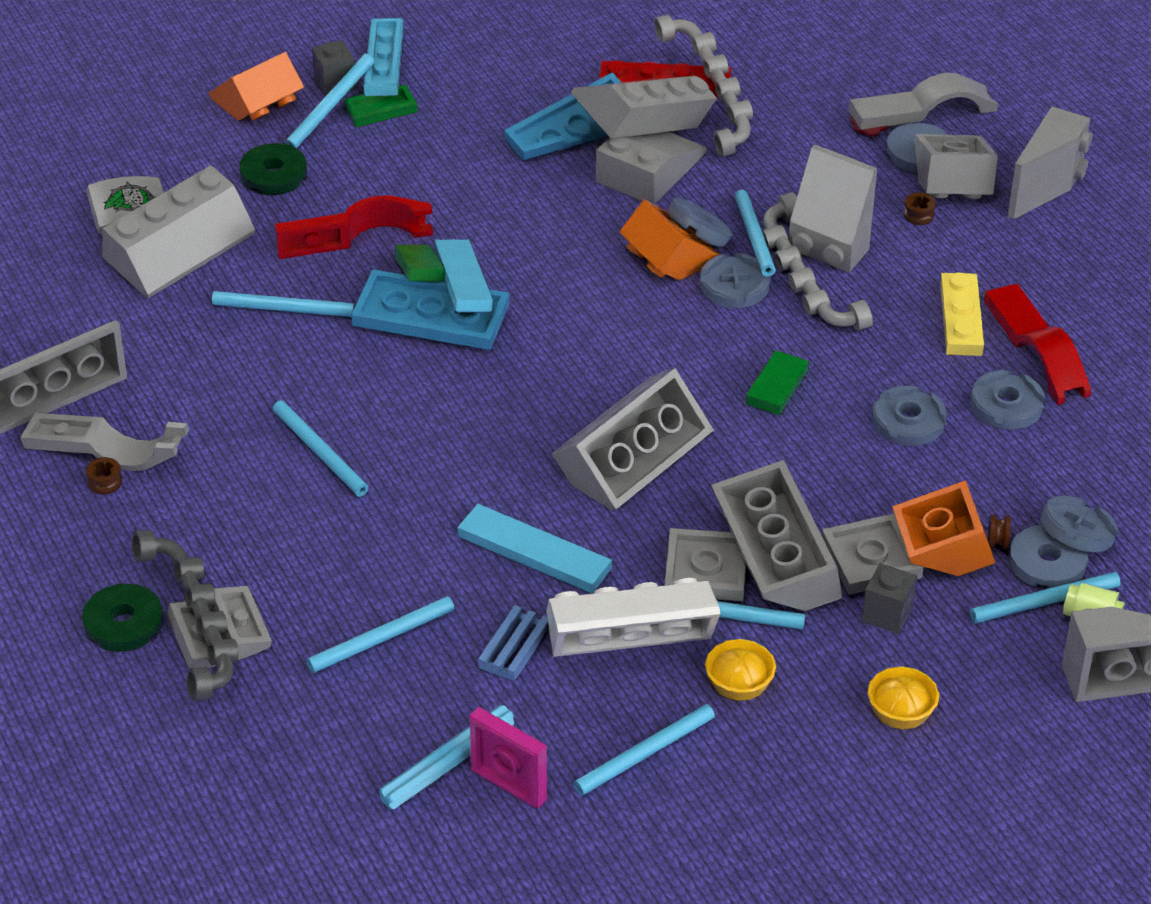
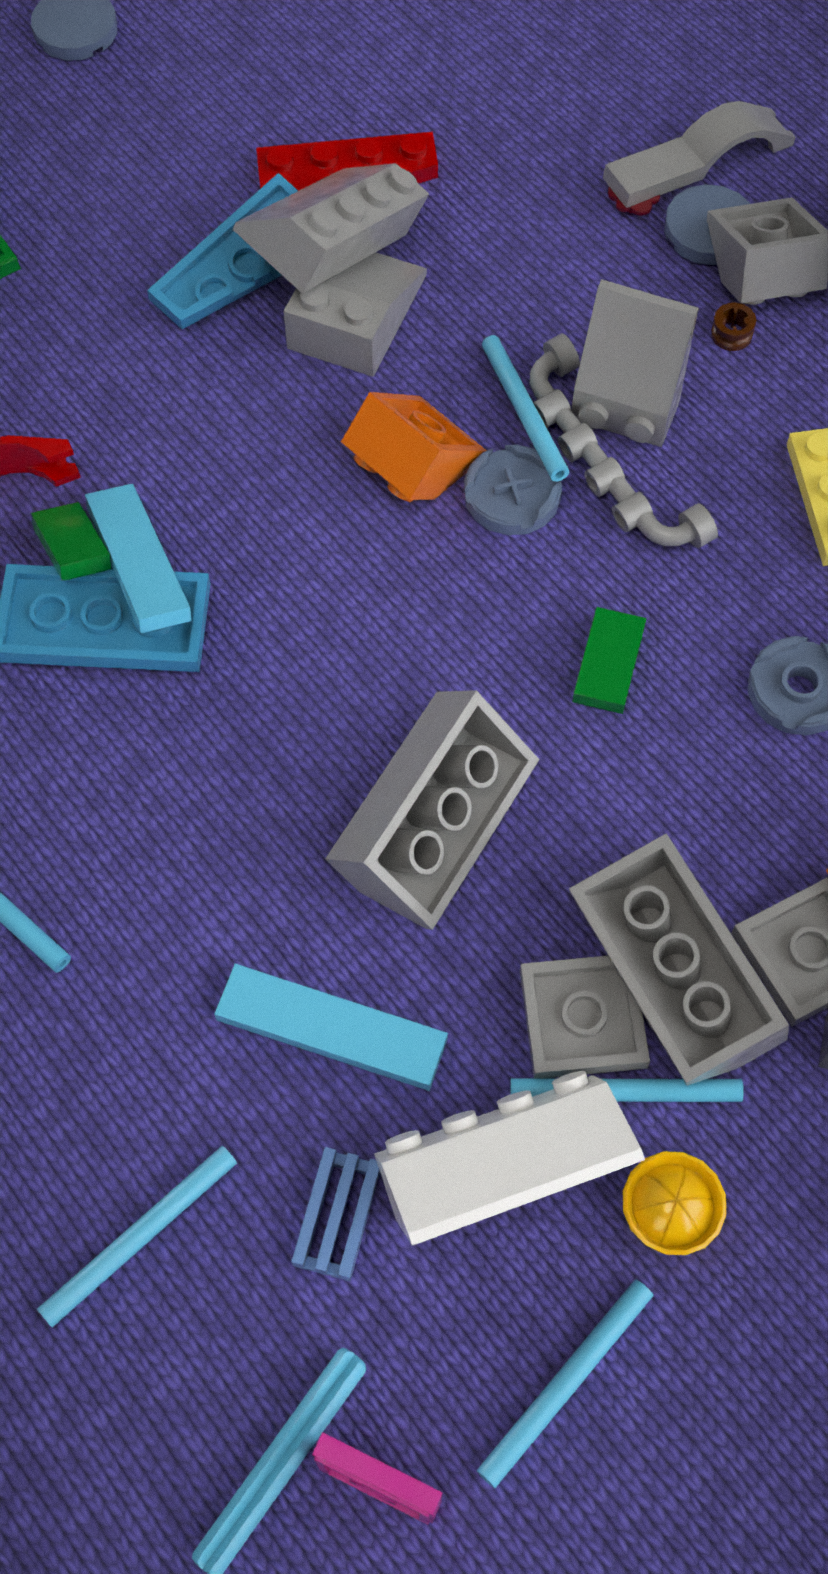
camera: 10 degrees left, 20 degrees up
(705, 224) = (445, 401): sand blue tile -> none
(714, 68) = (414, 141): light grey bar -> none

